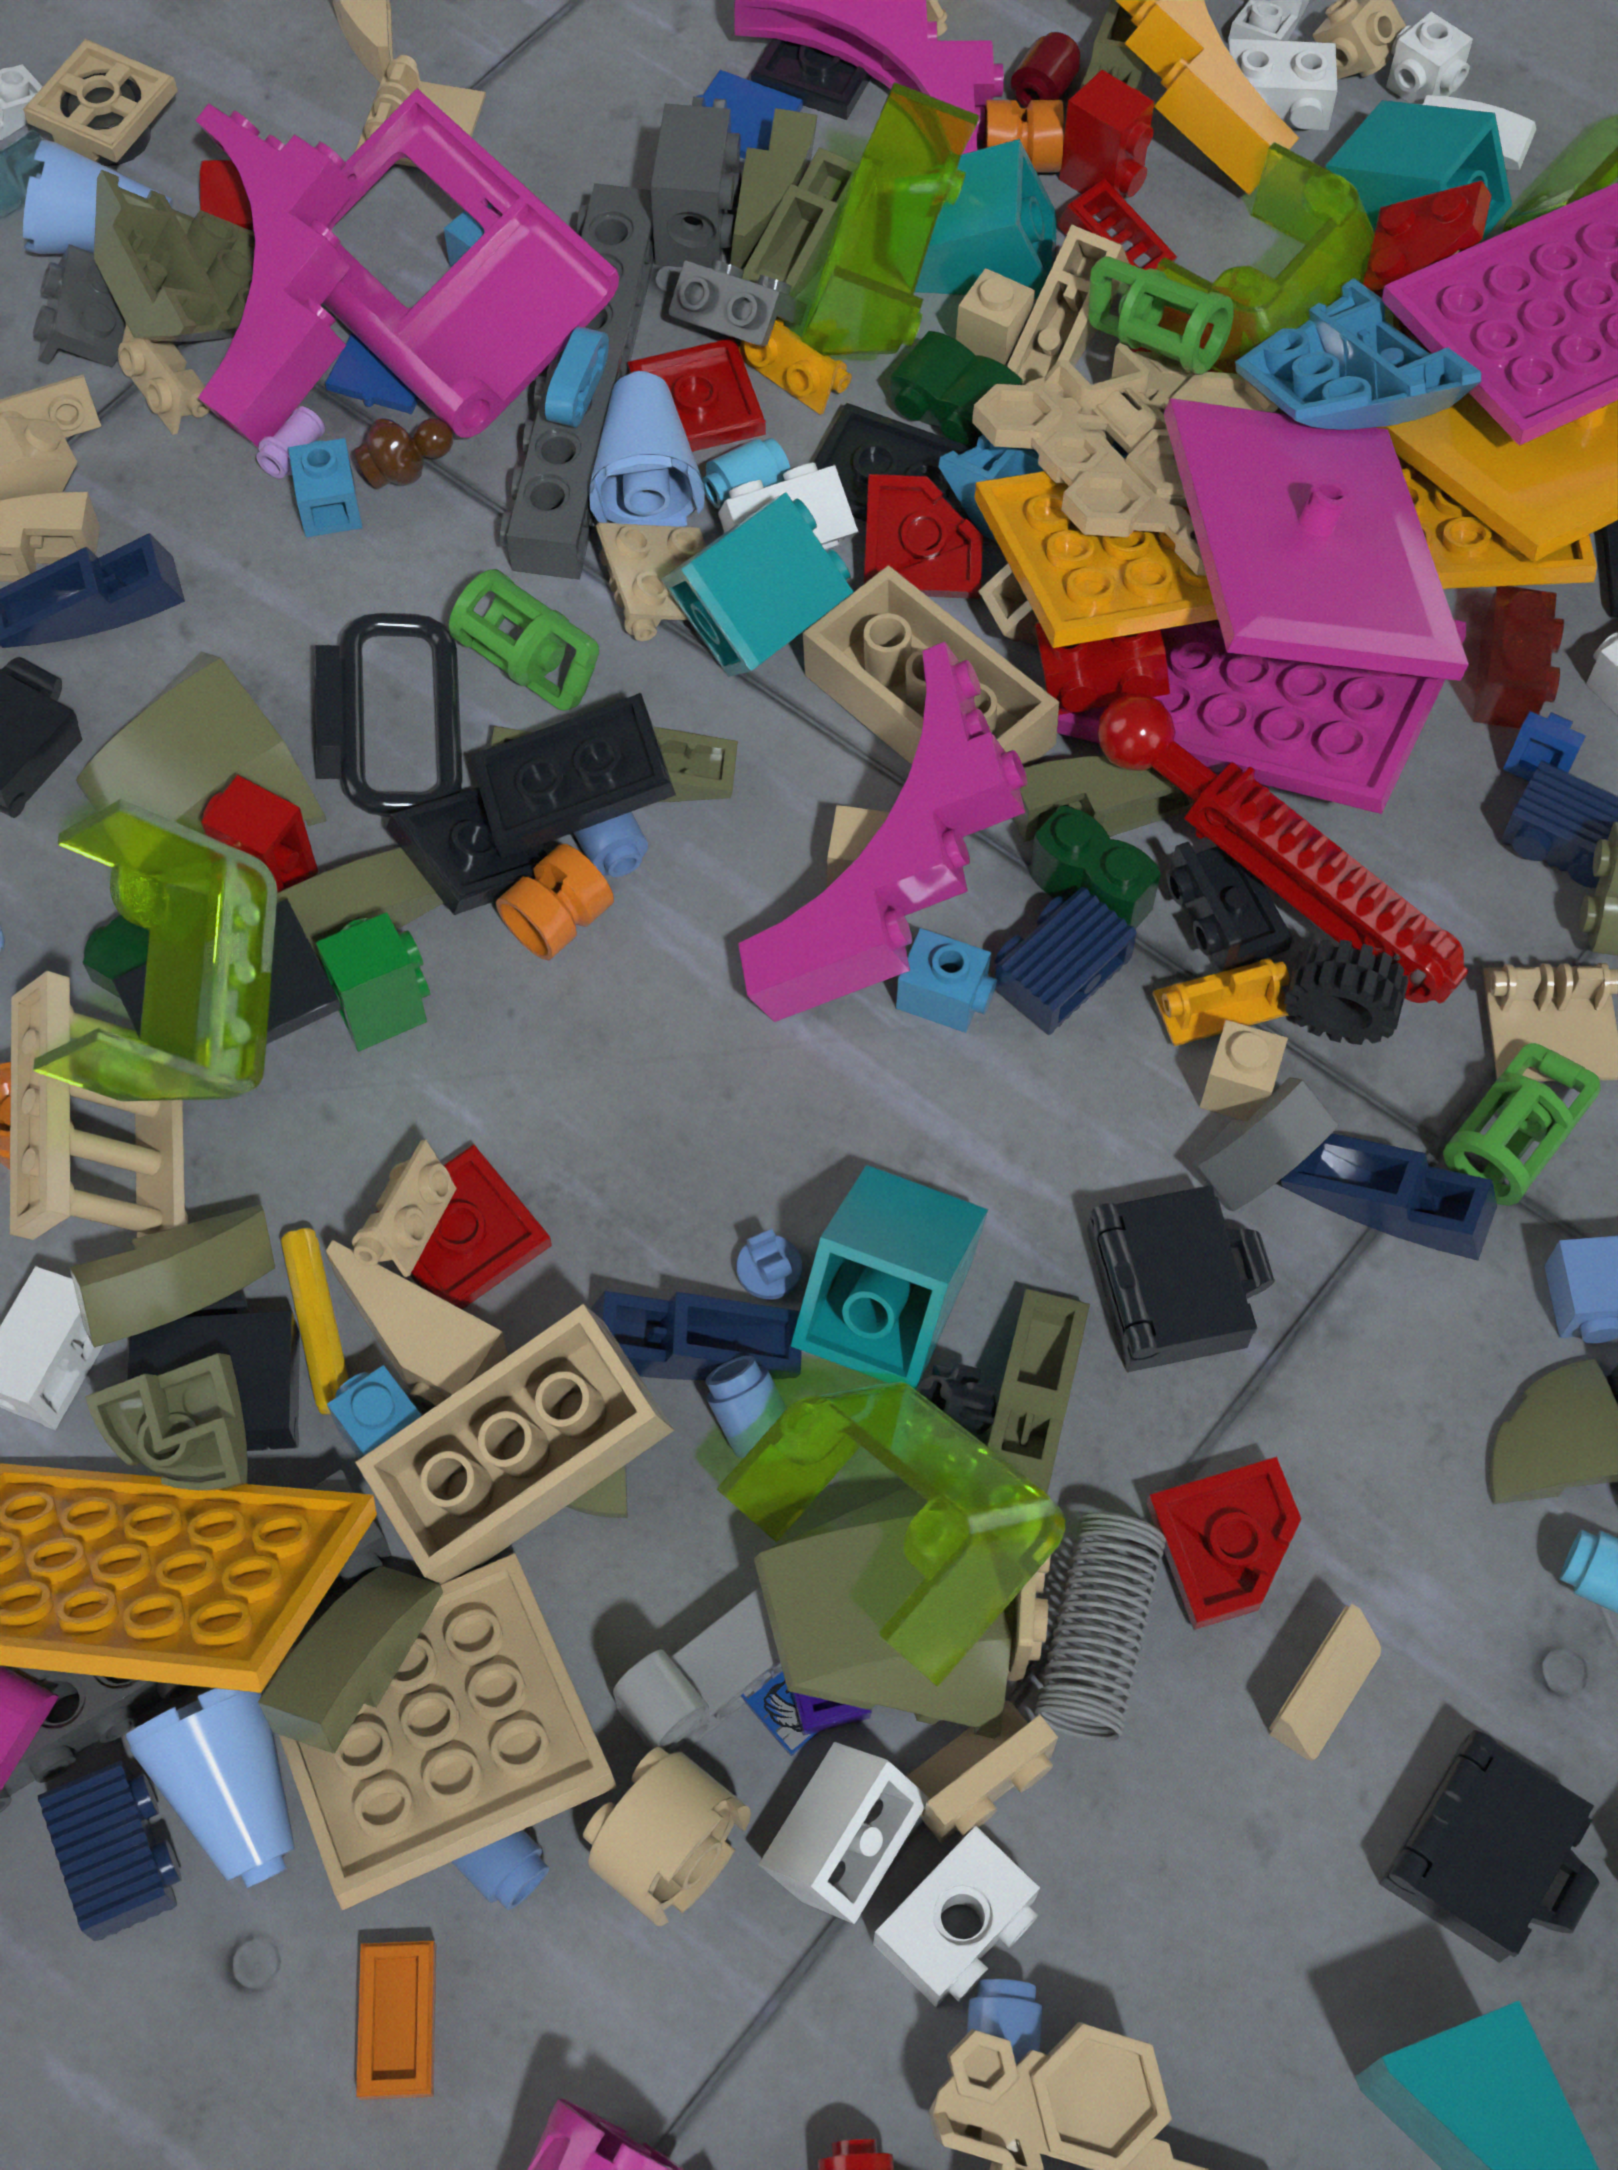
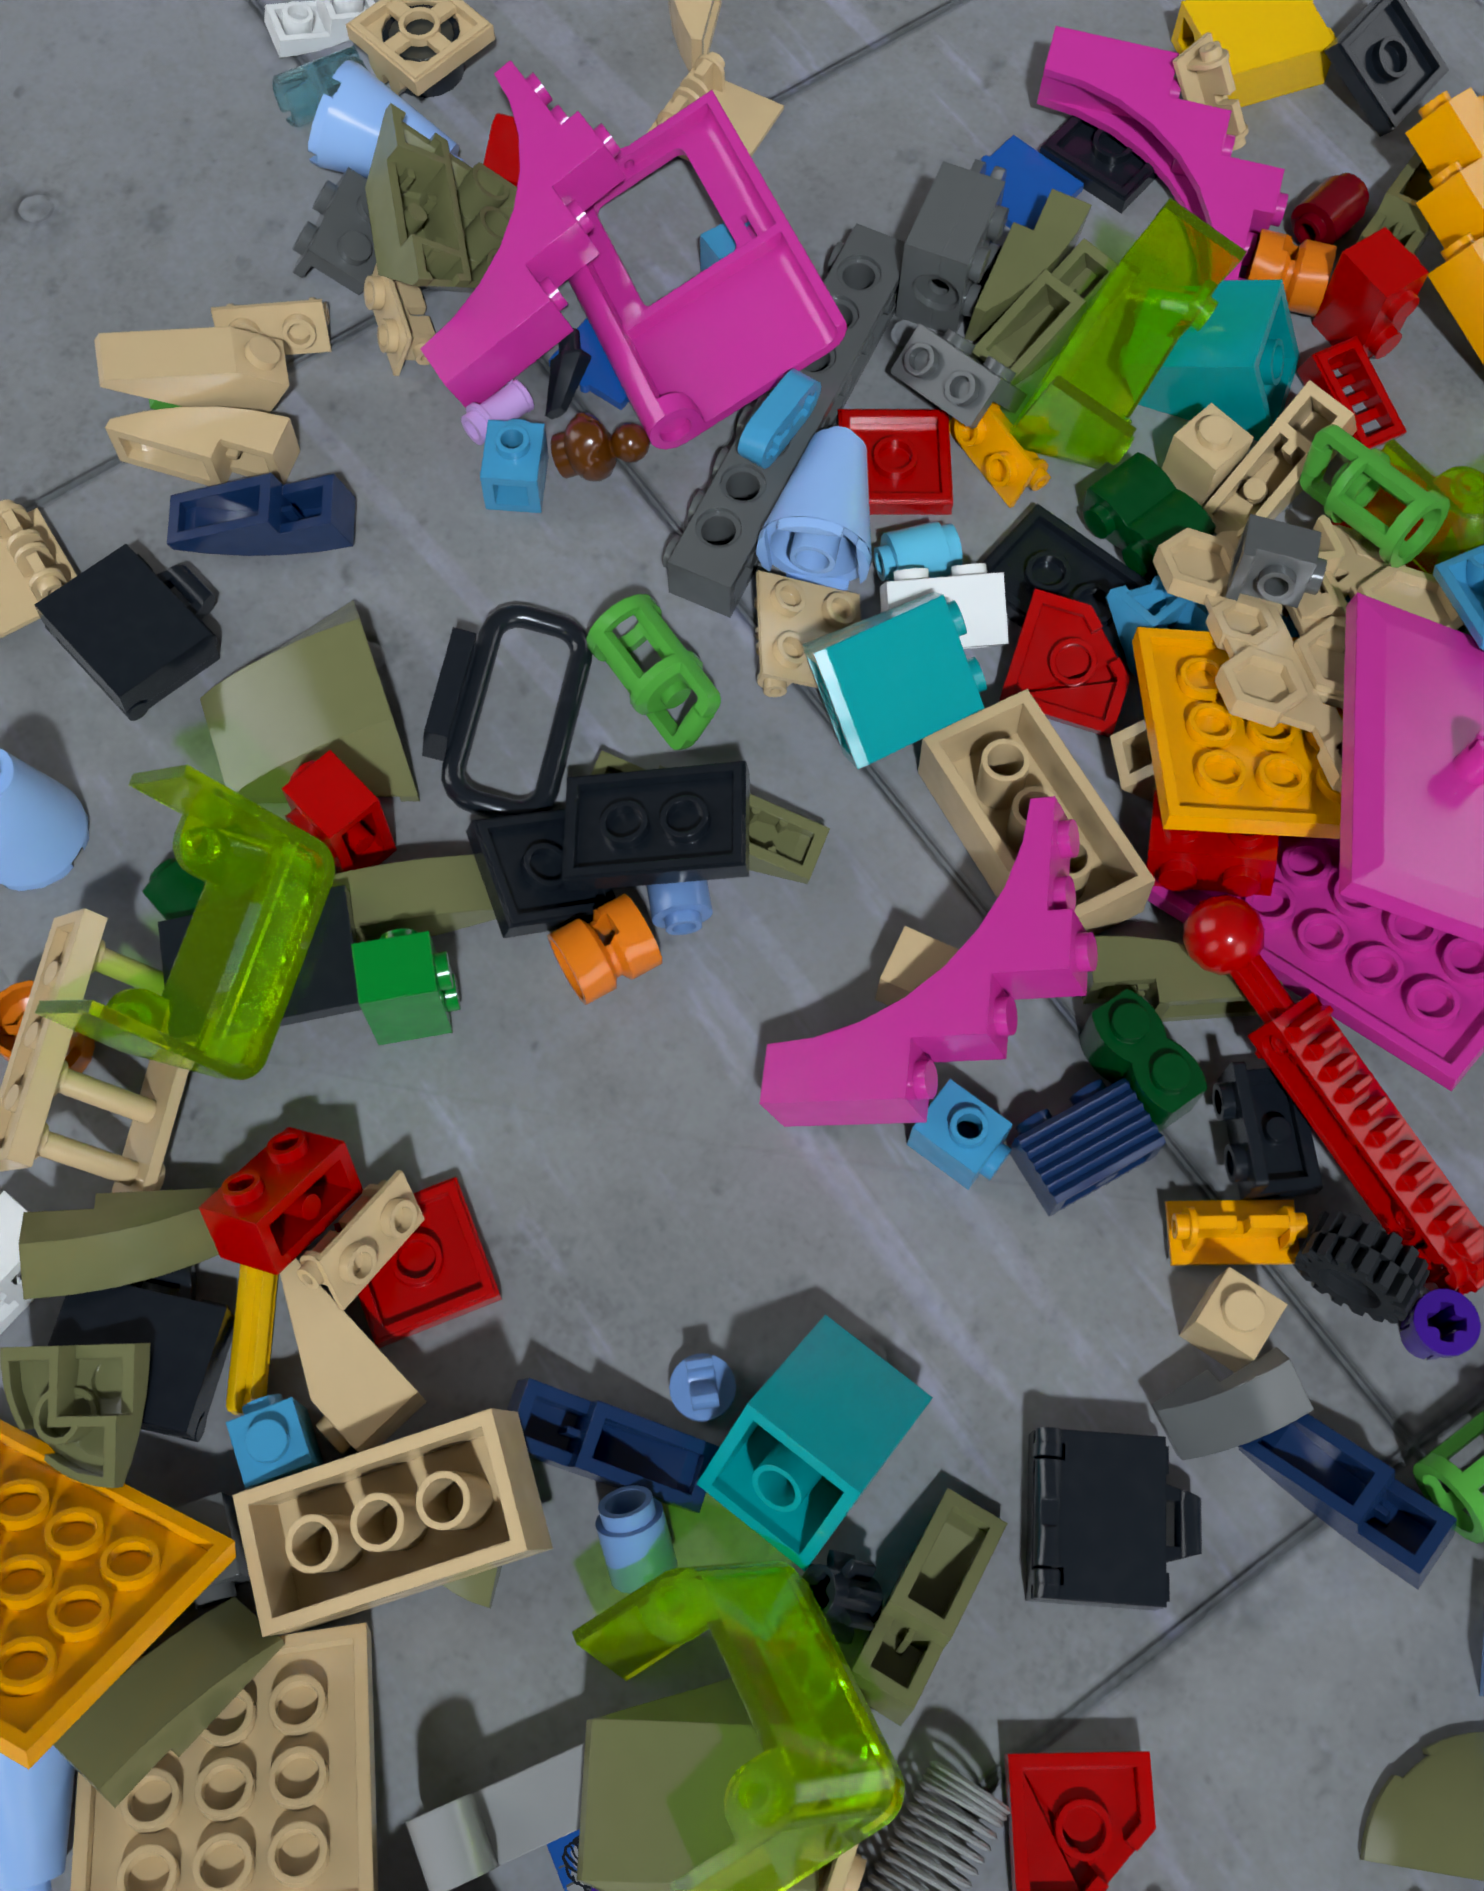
camera: 15 degrees right, 5 degrees up
(315, 1197) = (281, 1200): none -> red brick
(348, 391) = (565, 374): none -> black bar
(1087, 390) = (1276, 562): none -> dark grey brick
(1431, 1027) = (1449, 1313): none -> dark purple bush

